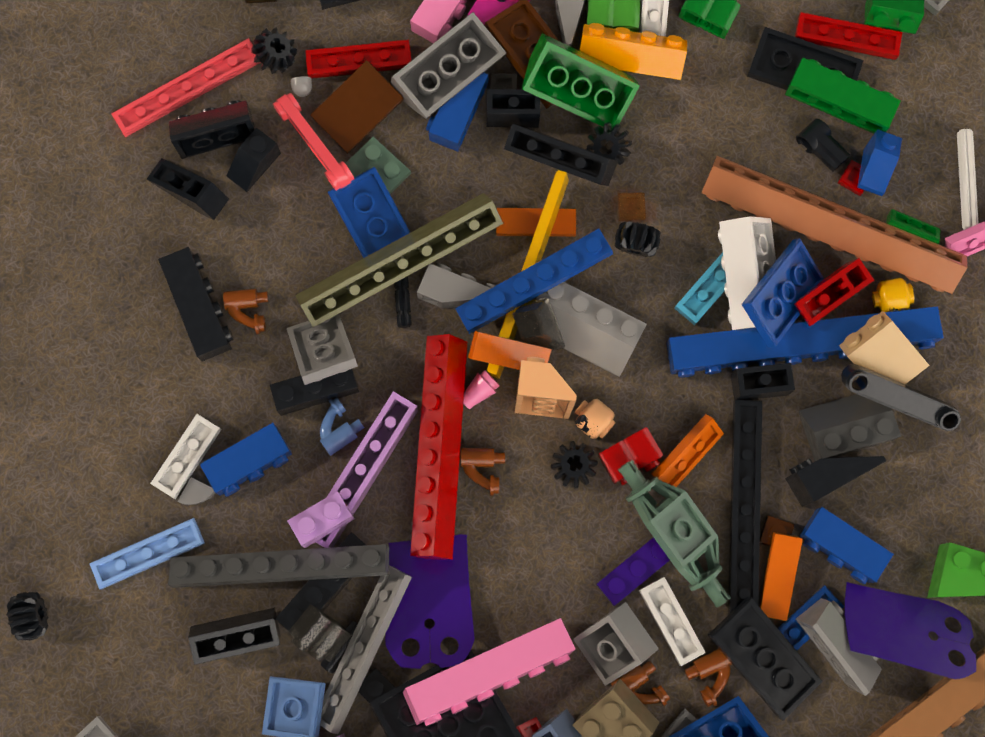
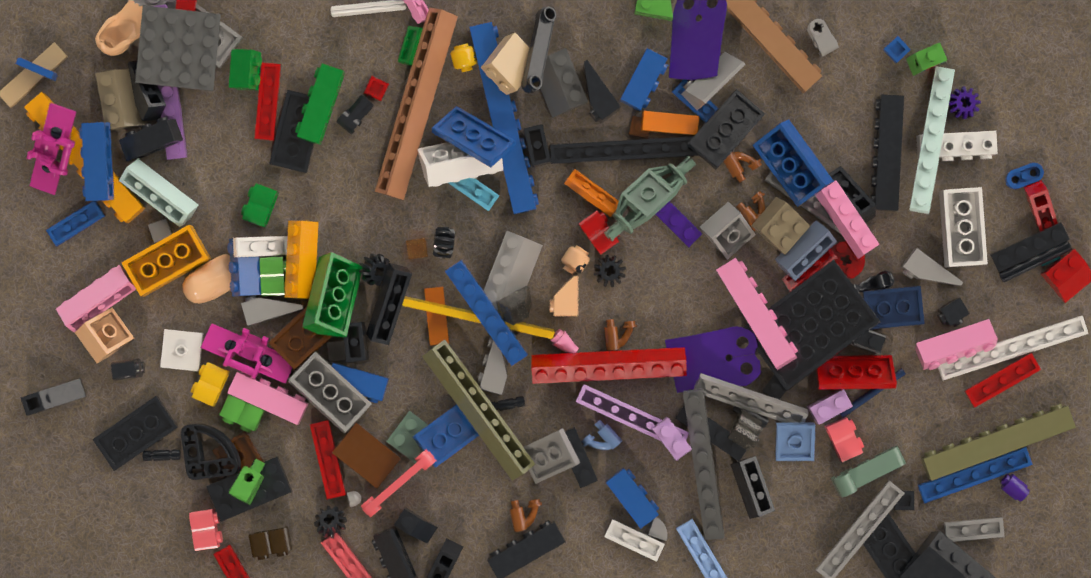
camera: 100 degrees left, 10 degrees up
(504, 351) = (539, 323): orange tile -> none
(672, 621) = (708, 193): white plate -> none
(833, 291) = (467, 101): red slope -> none
(879, 162) = (366, 74): blue slope -> none

